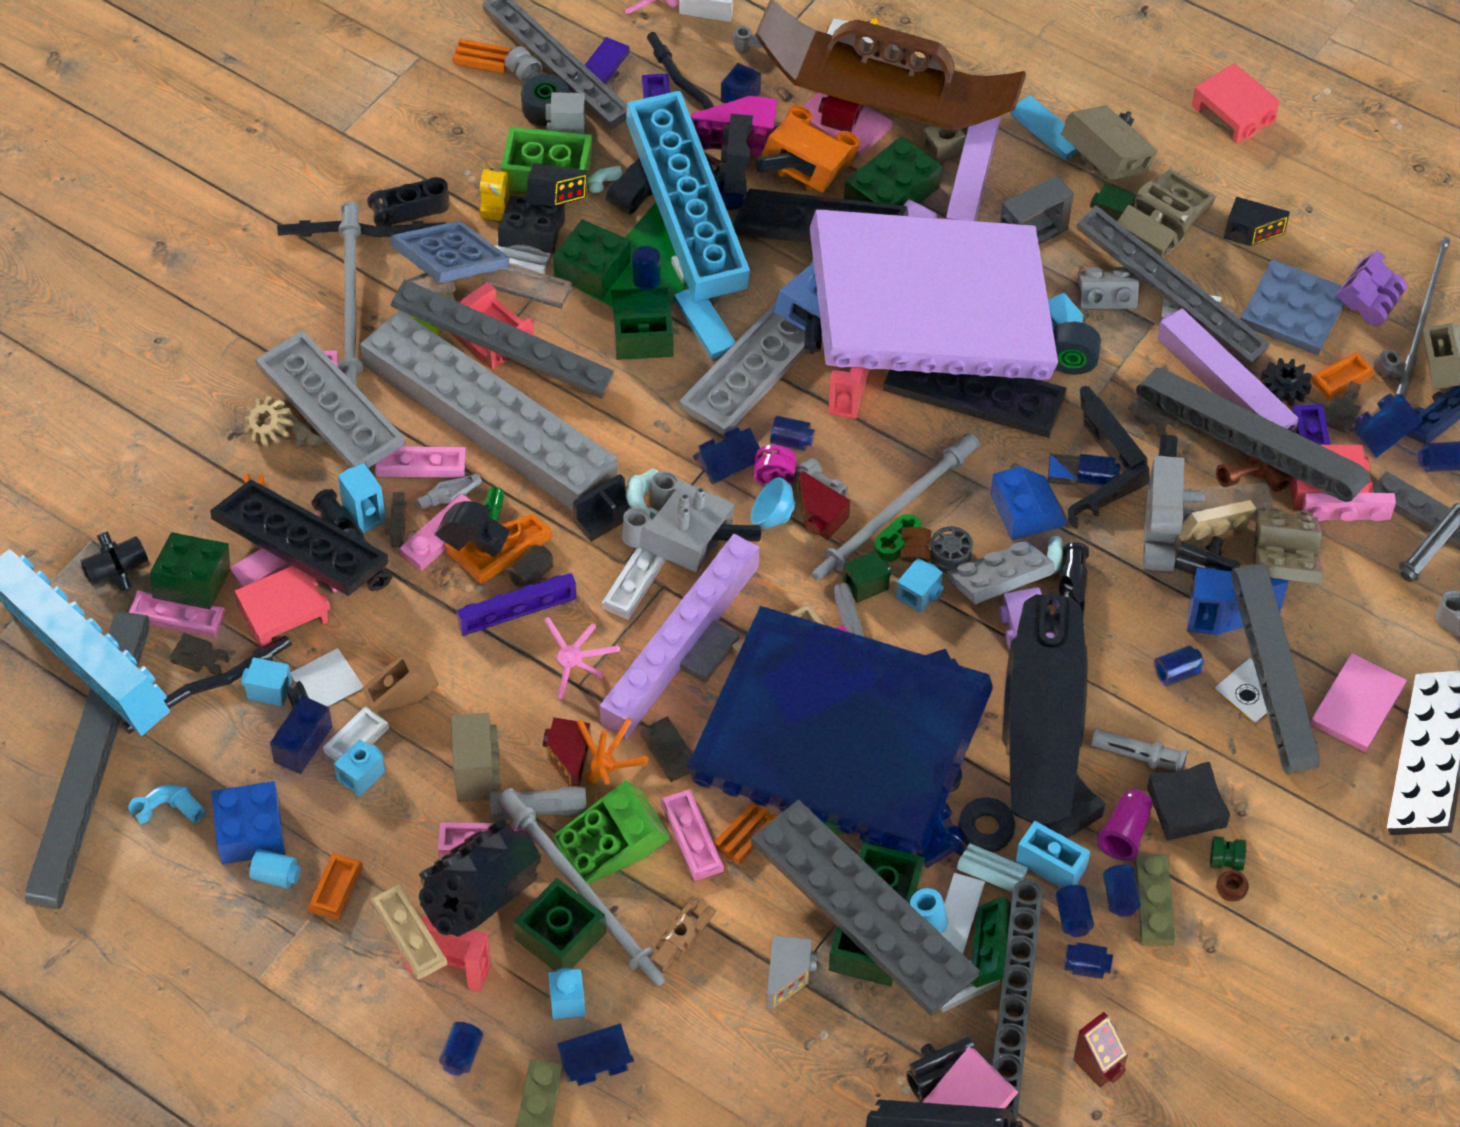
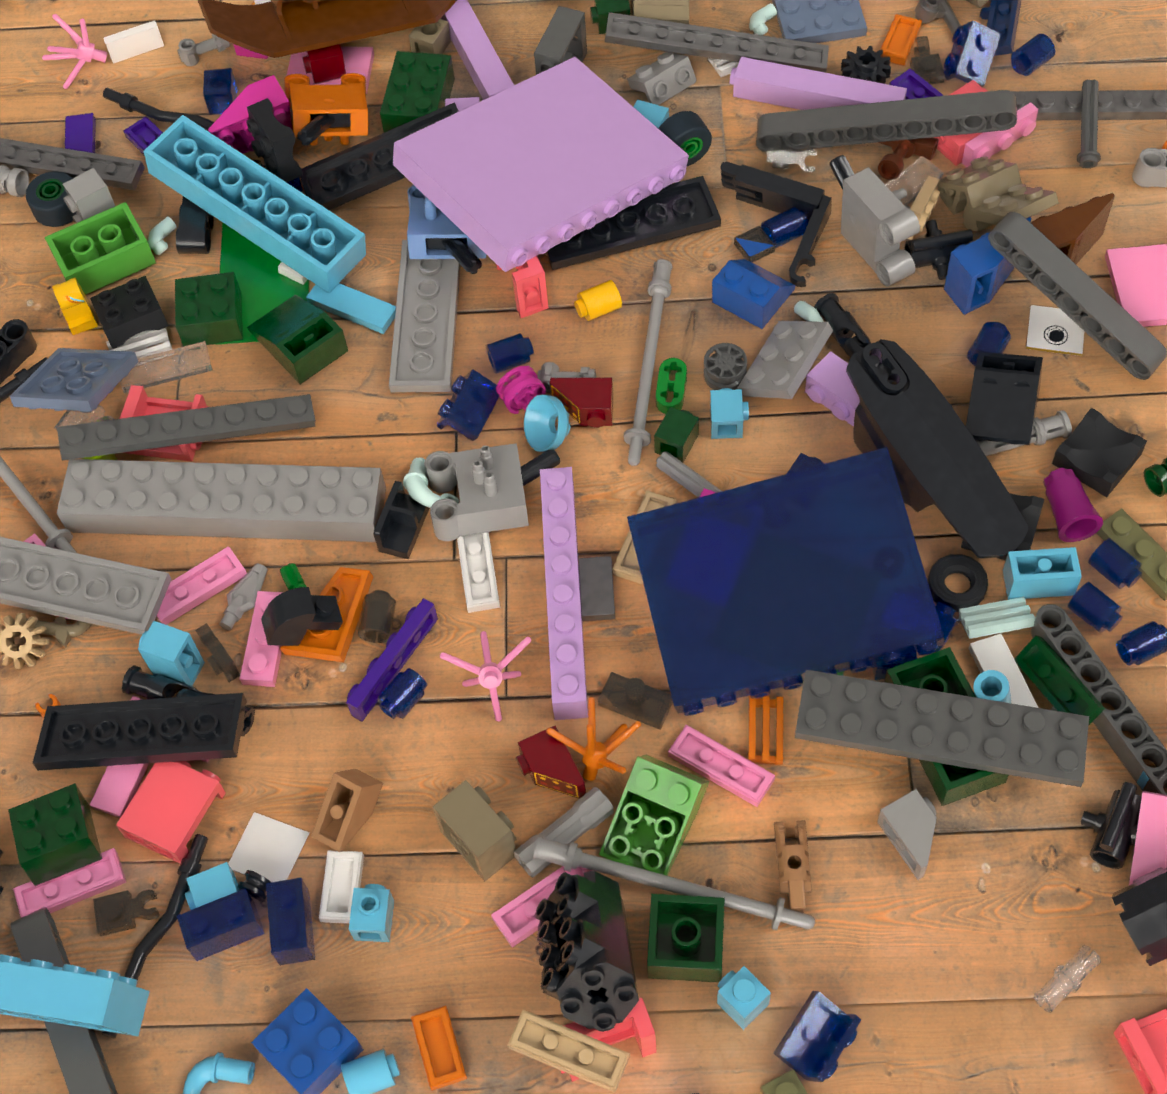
camera: 30 degrees left, 5 degrees up
(253, 705) = (220, 924): none -> clear blue brick
(503, 633) = (402, 694): none -> clear blue brick
(555, 185) = (128, 263): black slope -> none
(646, 267) = (264, 288): clear blue brick -> none
(895, 436) = (598, 300): none -> yellow brick
(915, 544) = (697, 380): reddish brown wheel -> none
(1144, 709) = (1004, 397): none -> black slope
(1236, 285) = (758, 19): none -> light aqua arm
(1323, 620) = (1077, 227): none -> reddish brown slope

